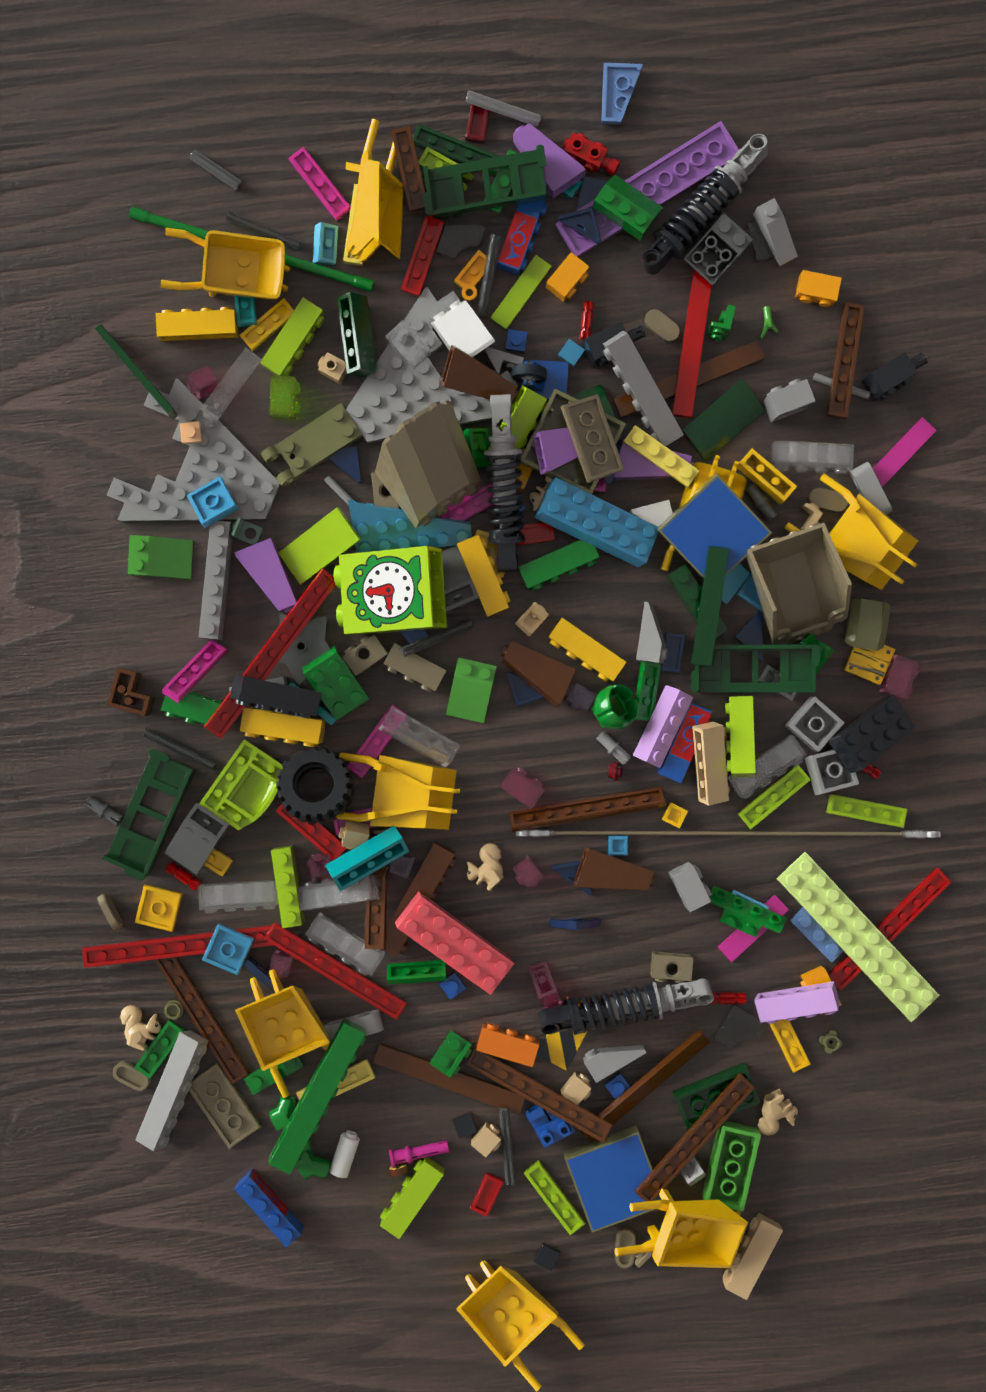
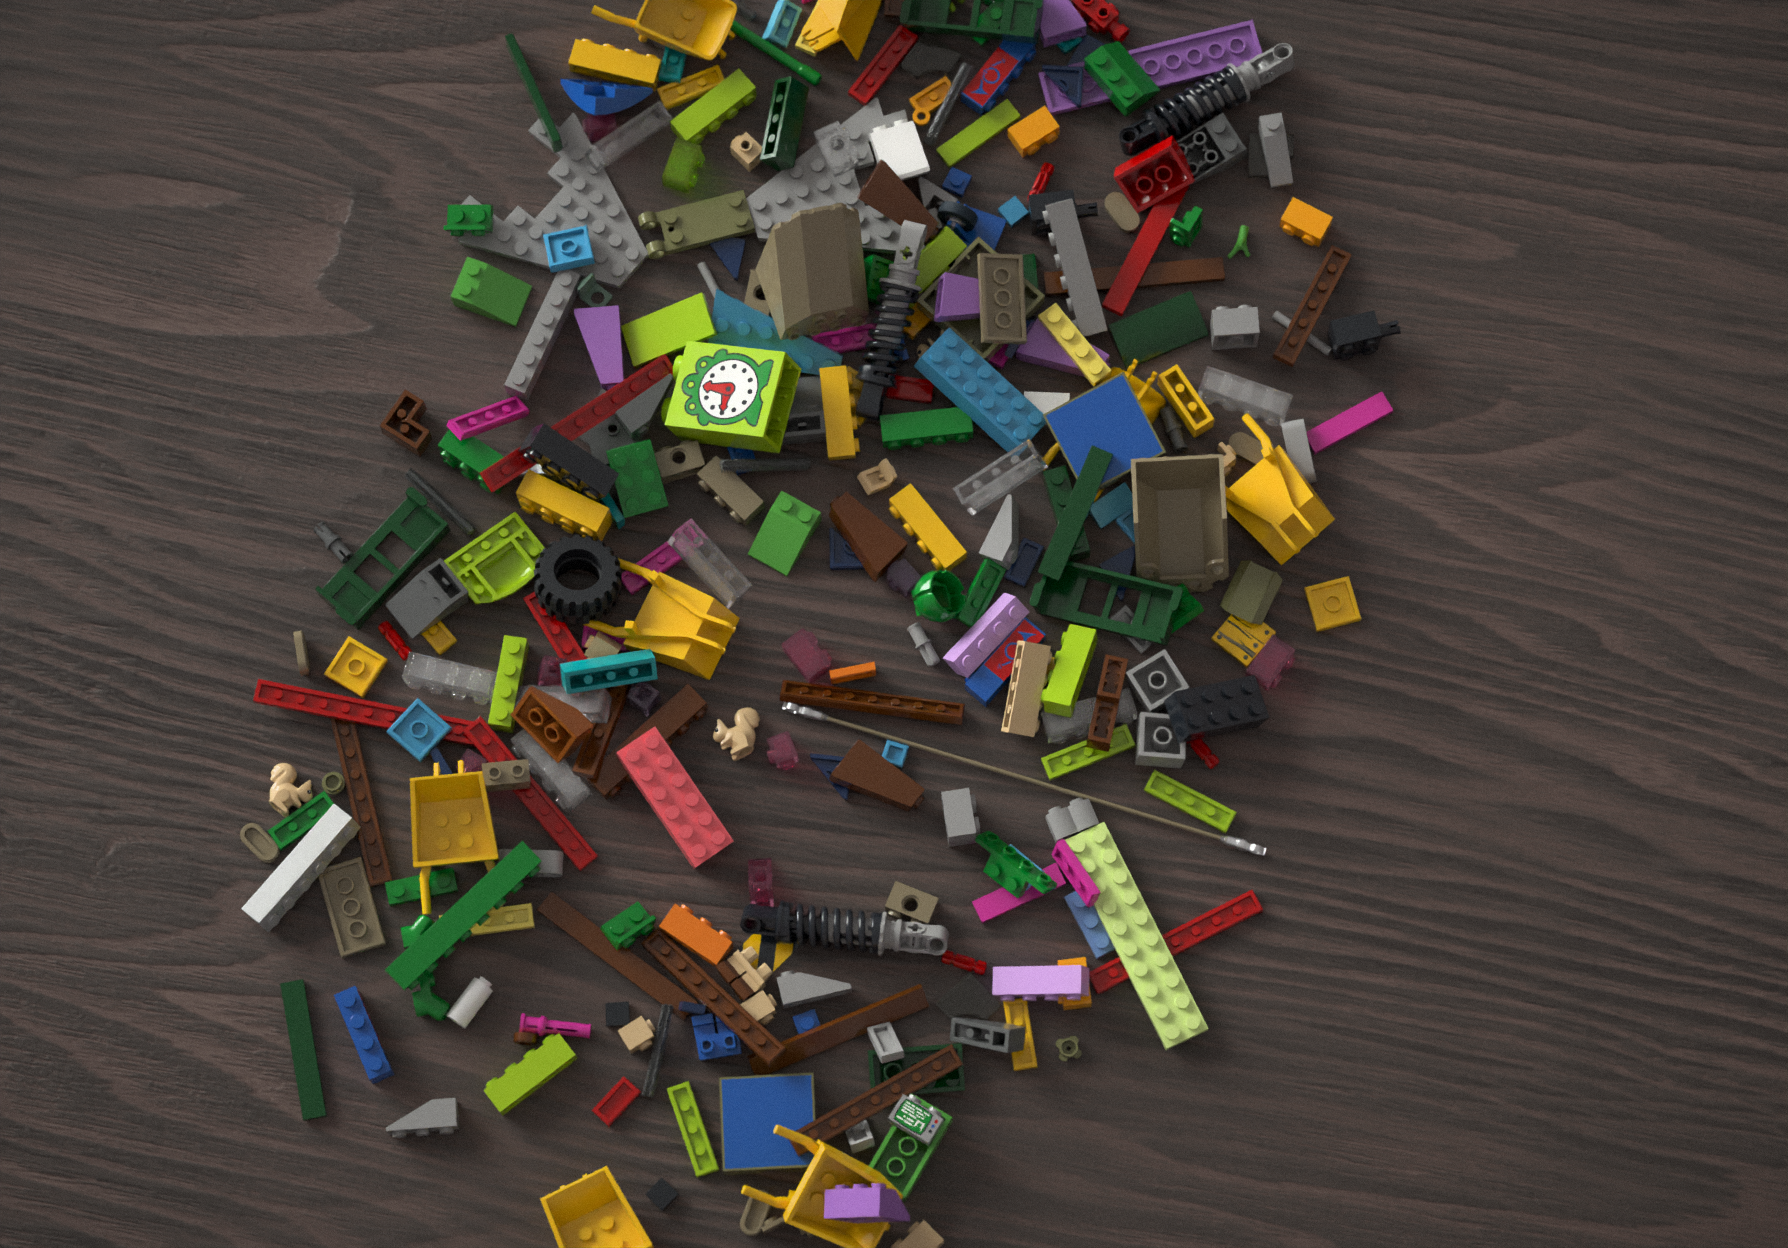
camera: 25 degrees right, 15 degrees down
(120, 500) = (469, 219): none -> green bracket
(191, 432) = (570, 172): light nougat plate -> none
(198, 358) = (604, 98): none -> blue brick
(225, 1231) = (303, 1050): none -> dark green tile
(312, 969) = (506, 775): none -> dark tan brick
(320, 626) = (640, 412): none -> dark grey slope
(336, 916) = (552, 723): none -> dark orange slope
(349, 1253) = (434, 1115): none -> light grey slope
(416, 972) = (620, 823): green plate -> none
(452, 985) = (656, 852): blue plate -> none
(523, 1107) = (691, 1008): none -> dark blue tile
(554, 1066) = (742, 976): none -> hips
(565, 789) = (852, 673): none -> orange tile
(575, 923) = (818, 823): dark blue tile -> none
(615, 771) = (917, 670): dark red plate -> none
(635, 590) = (1000, 477): none -> clear brick
(674, 815) = (968, 738): yellow plate -> none
(682, 285) = (1154, 174): none -> red slope
(687, 1087) = (885, 1042): none -> light grey tile
(720, 1245) = (864, 1204): none -> medium lavender slope
(735, 1150) = (916, 1119): none -> brick
(770, 1055) = (988, 1034): none -> dark grey slope
(775, 1109) = (975, 1105): tan animal -> none
(778, 857) = (1071, 819): none -> light grey brick
(780, 755) = (1107, 703): none -> reddish brown slope
(796, 902) = (1075, 873): none -> dark pink tile
(933, 610) = (1332, 604): none -> yellow tile

